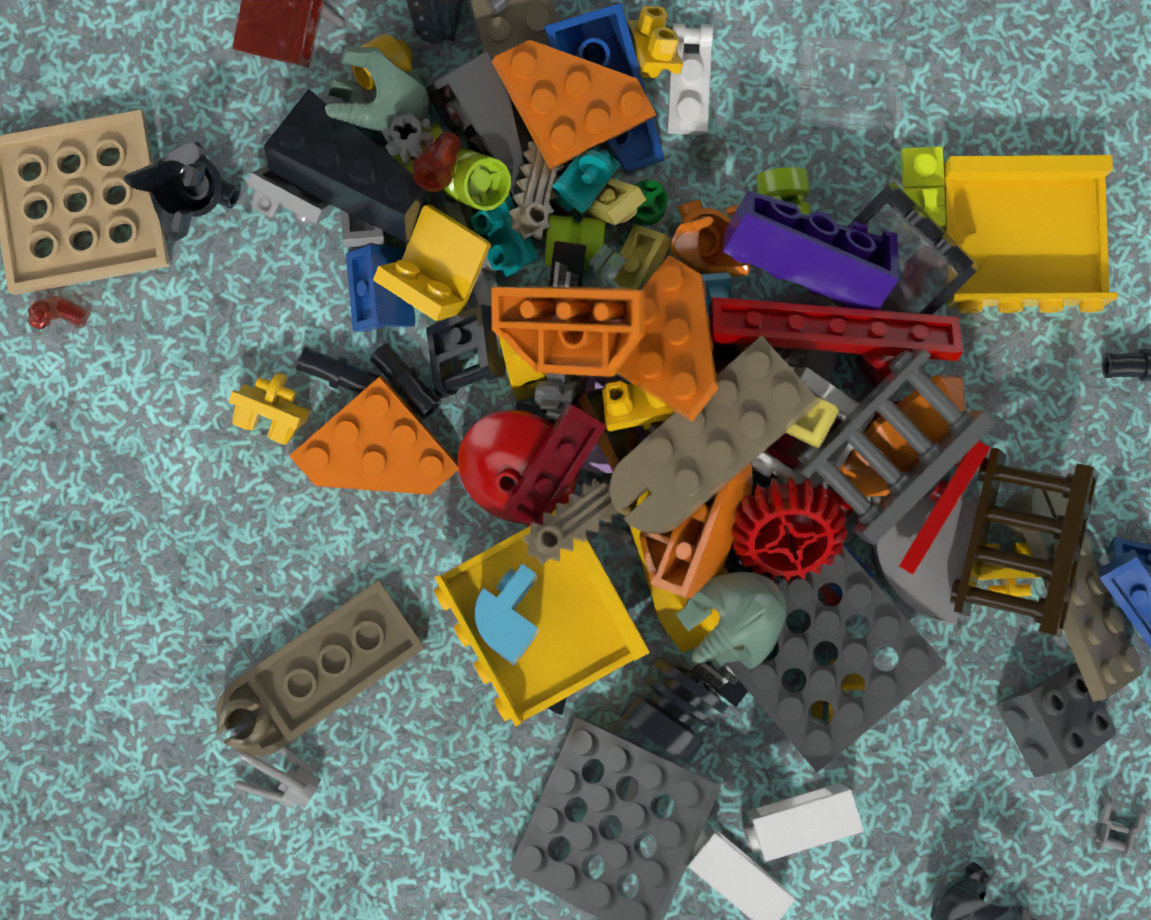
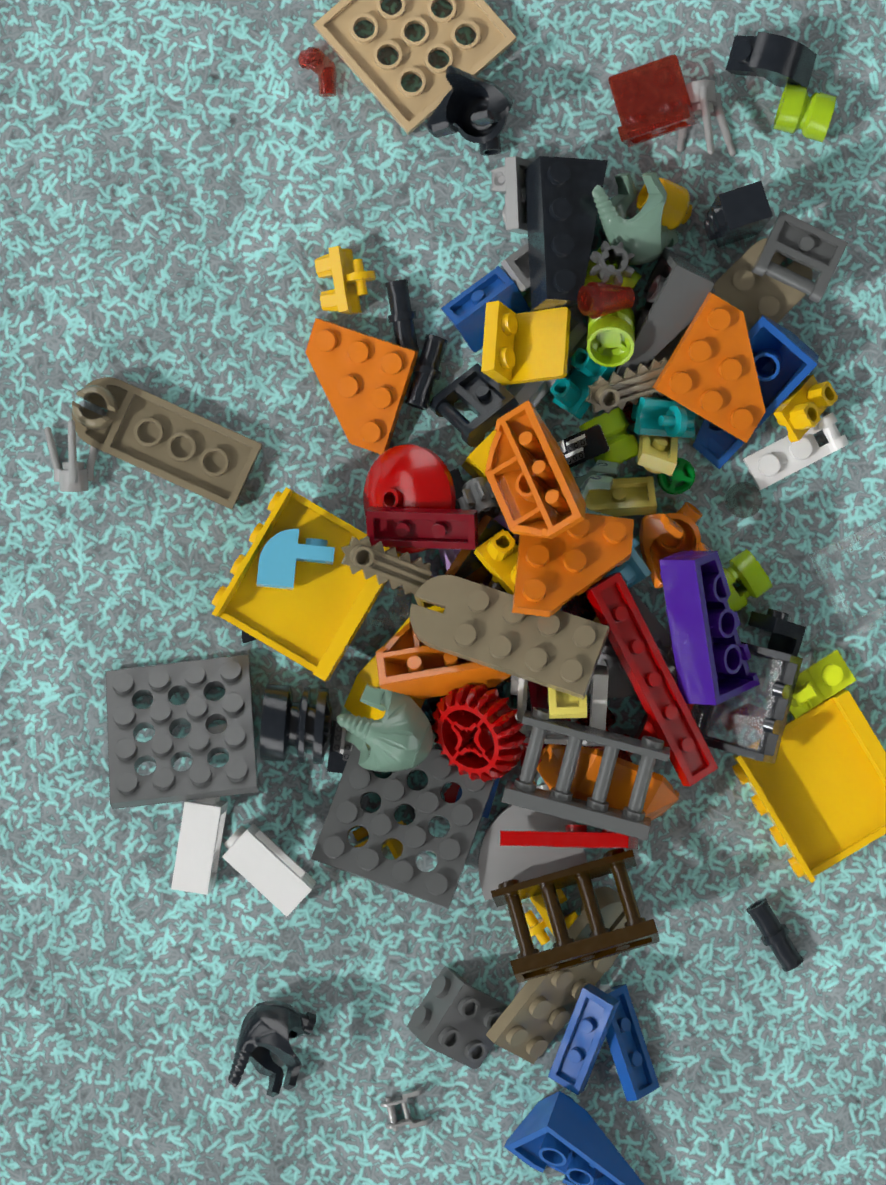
camera: 50 degrees right, 5 degrees up
(857, 187) = (785, 635): none -> black bracket

